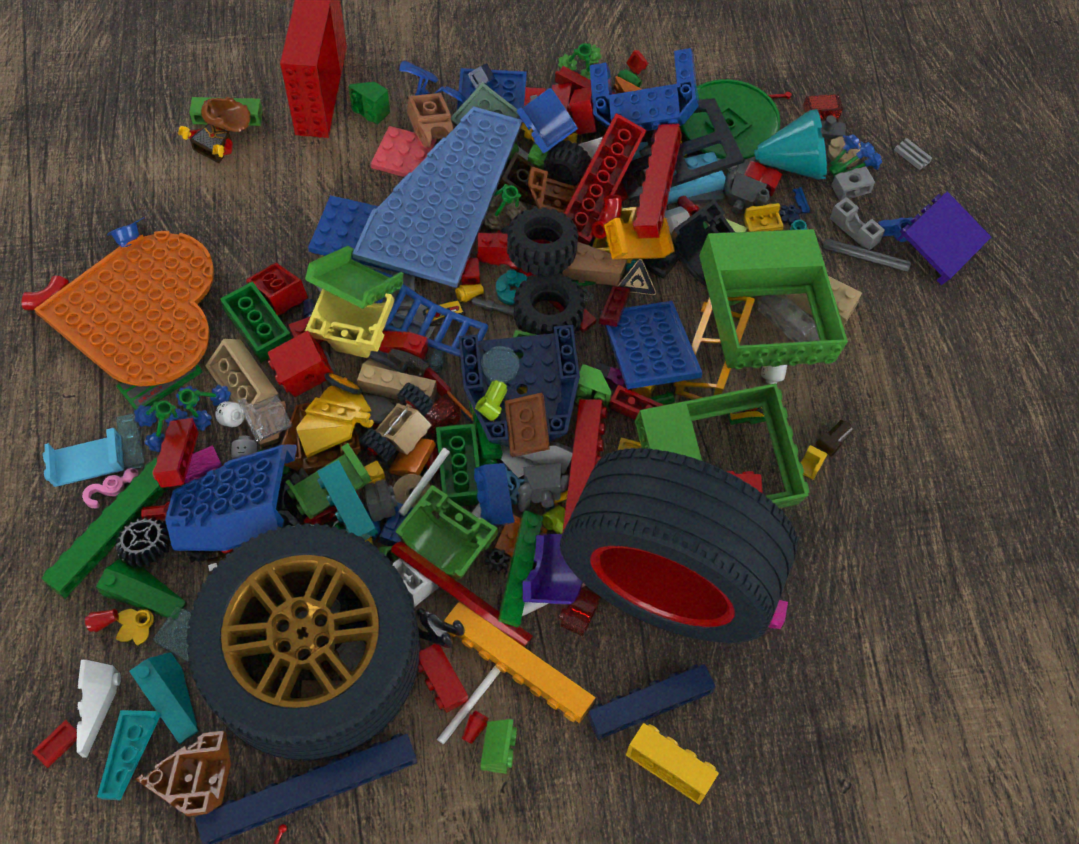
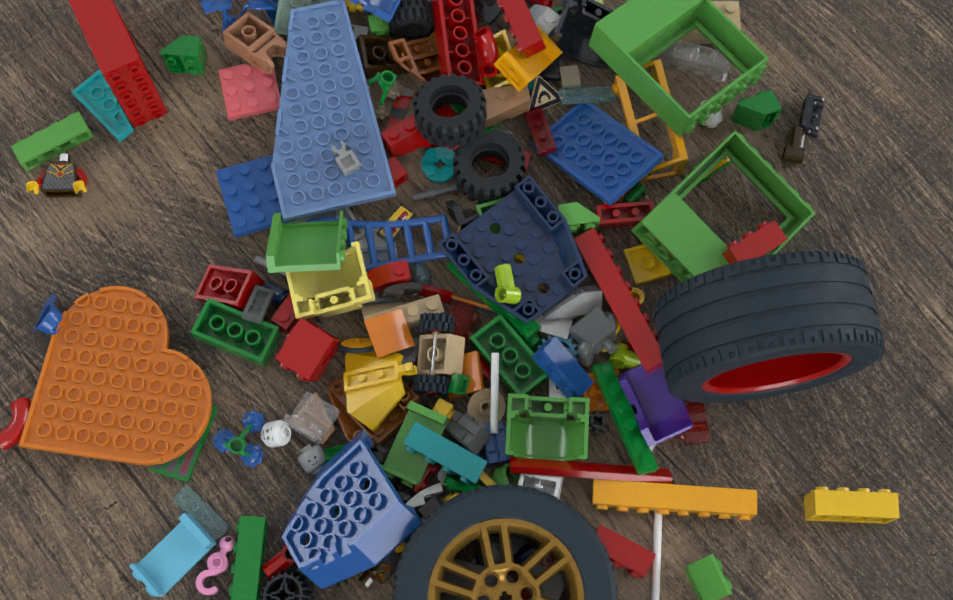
camera: 30 degrees left, 10 degrees up
(163, 411) = (224, 470): blue plant -> none
(176, 453) = (258, 500): red brick -> none
(202, 462) = (283, 497): dark pink brick -> none
(226, 114) = (65, 142): dark orange piece -> none
(237, 369) = (254, 389): tan slope -> none
(280, 110) = (103, 105): none -> teal wing
(286, 307) = (258, 304): none -> dark grey tile
(372, 385) = (389, 333): none -> orange slope
(400, 457) = (459, 384): none -> green tile
(433, 235) = (346, 160): none -> light grey plate
(438, 629) = (596, 514): black piece -> none
(467, 292) = (404, 192): yellow cone -> none
(475, 725) = (675, 575): red cone -> none
(496, 326) = (458, 216): none -> black panel
(500, 364) = (489, 247): clear light blue tile -> none
(527, 425) = (549, 289): dark orange tile -> none
(612, 376) = (583, 197): magenta leg -> none
(650, 701) = (798, 464): dark blue brick -> none
(669, 280) = (570, 77): none -> dark tan panel
(675, 299) = (586, 95): none -> clear light blue tile
(812, 461) = (792, 176): yellow panel -> none
(816, 388) = (757, 111): none -> green slope
(869, 421) = (811, 114): none -> black hinge

